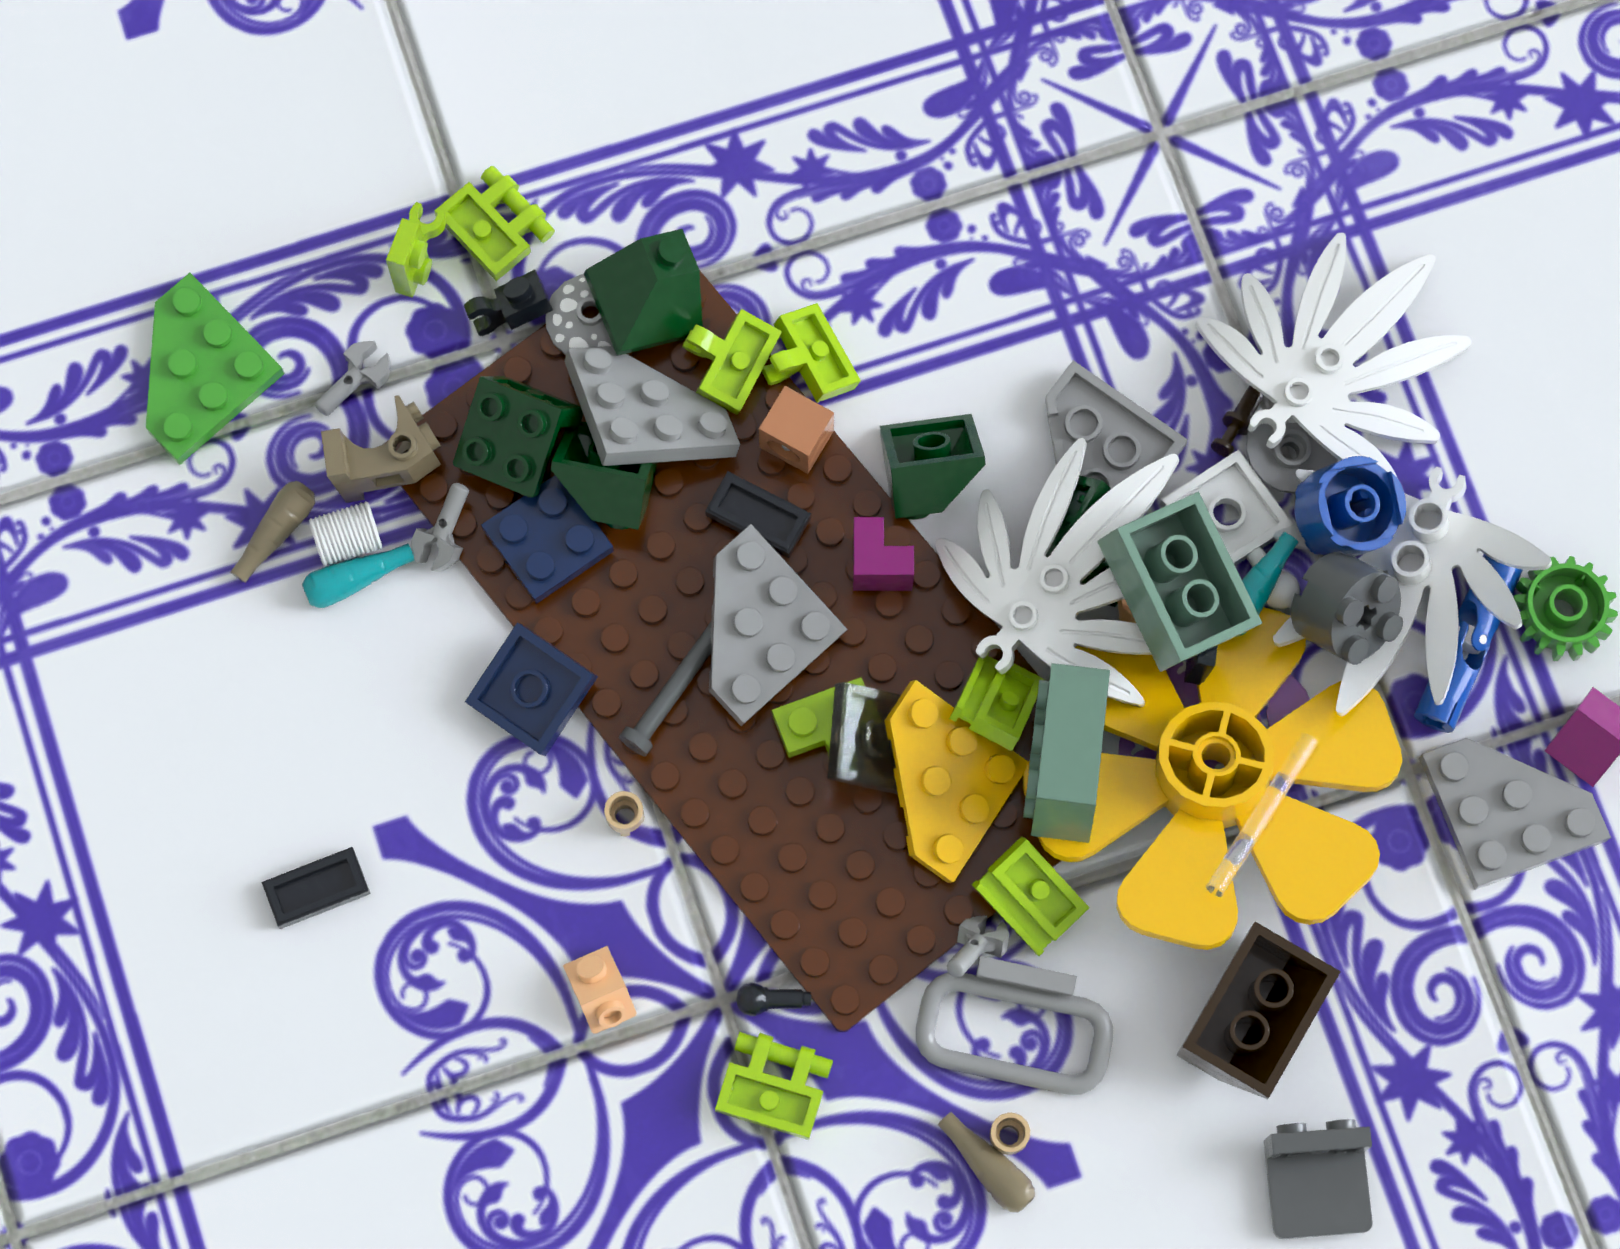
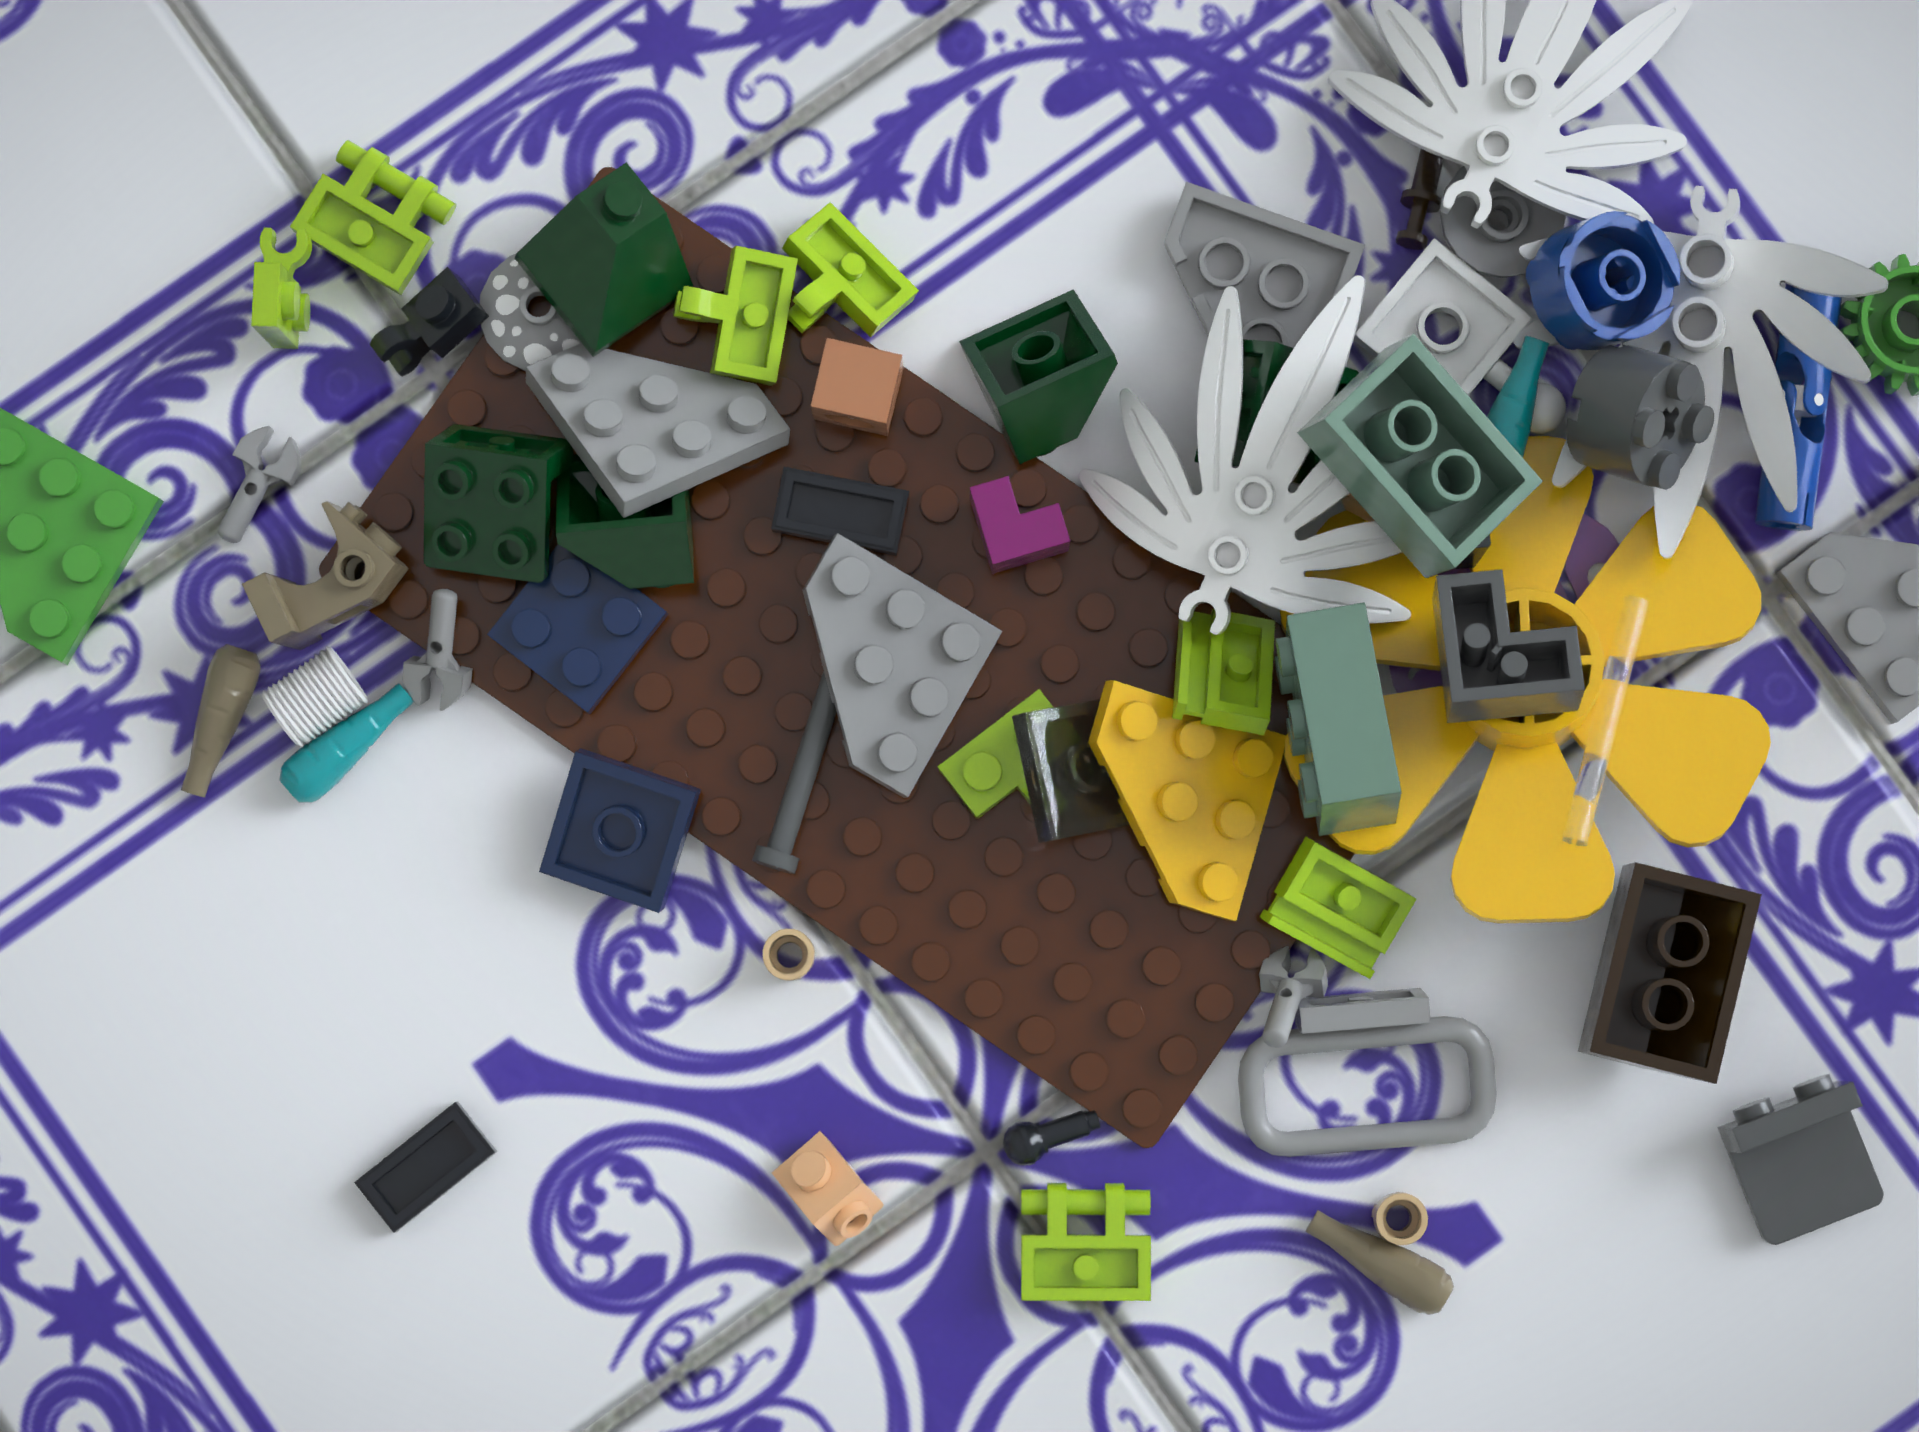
camera: 15 degrees left, 10 degrees up
(1189, 745) = (1495, 670): none -> dark grey brick

